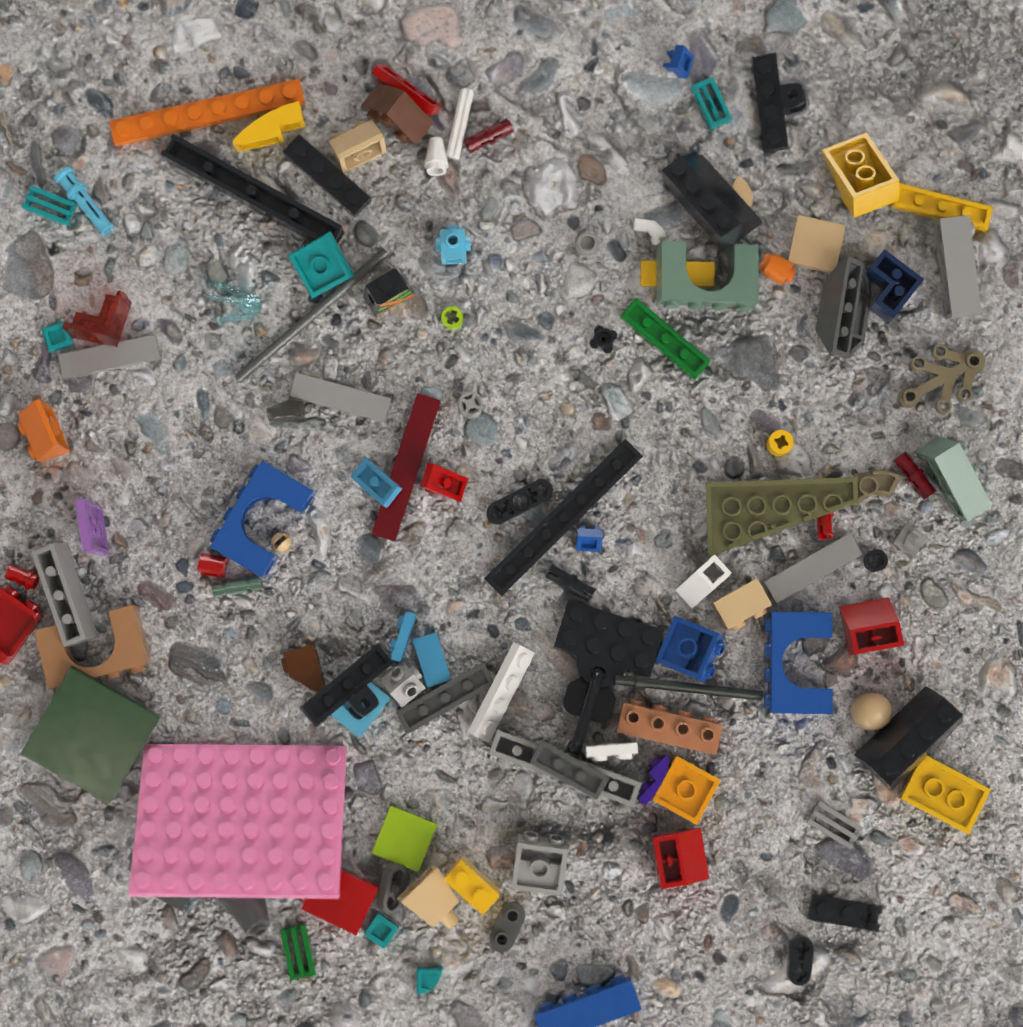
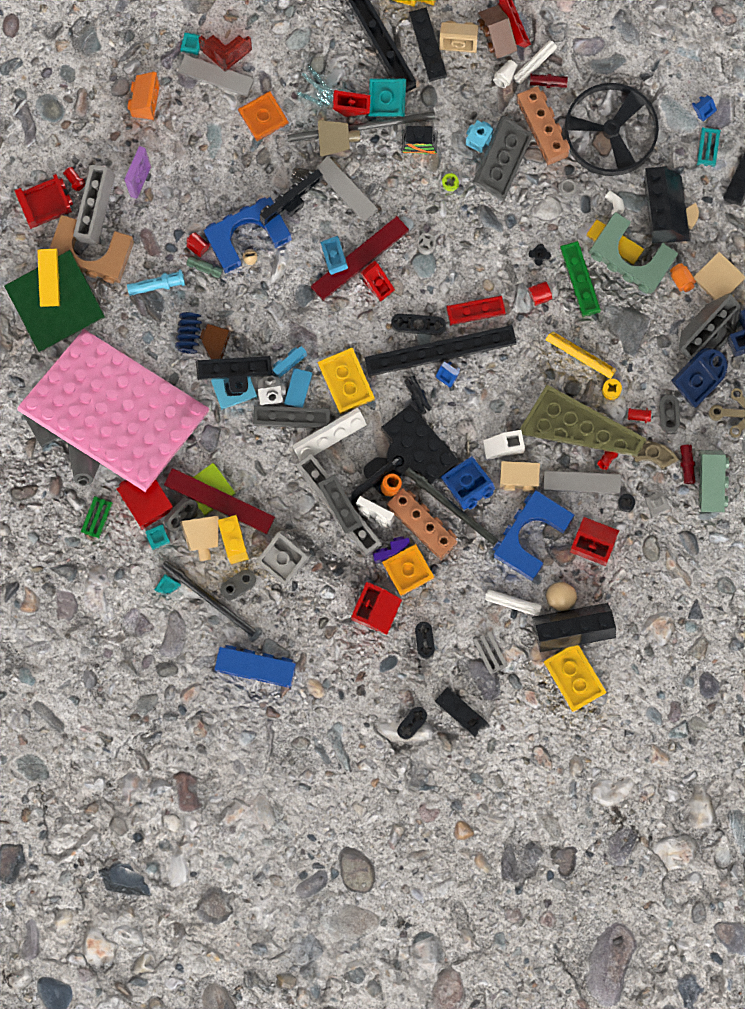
camera: 40 degrees right, 5 degrees down
(66, 714) = (48, 277): none -> yellow tile
(193, 371) = (263, 116): none -> orange tile
(203, 631) = (165, 281): none -> medium azure pin
(267, 675) = (187, 332): none -> dark blue piece
(285, 296) = (351, 103): none -> red slope
(288, 449) = (291, 200): none -> black plate
(291, 346) = (335, 137): none -> dark tan torso
(426, 846) = (219, 501): none -> dark red tile
(433, 959) = (179, 575): none -> black bar
(480, 617) = (346, 380): none -> yellow plate
(494, 255) = (502, 158): none -> dark grey tile
(515, 190) = (542, 125): none -> nougat brick
(572, 446) = (476, 310): none -> red tile
(593, 148) = (611, 128): none -> black piece
(617, 706) = (393, 480): none -> orange brick
(632, 382) = (540, 293): none -> red brick
(721, 425) = (581, 354): none -> yellow tile
(758, 853) = (429, 639): none -> black beam
(824, 752) = (513, 602): none -> white axle
(828, 452) = (639, 415): none -> red pin
(861, 430) = (669, 414): none -> dark grey plate
(868, 367) = (699, 376): none -> dark blue tile

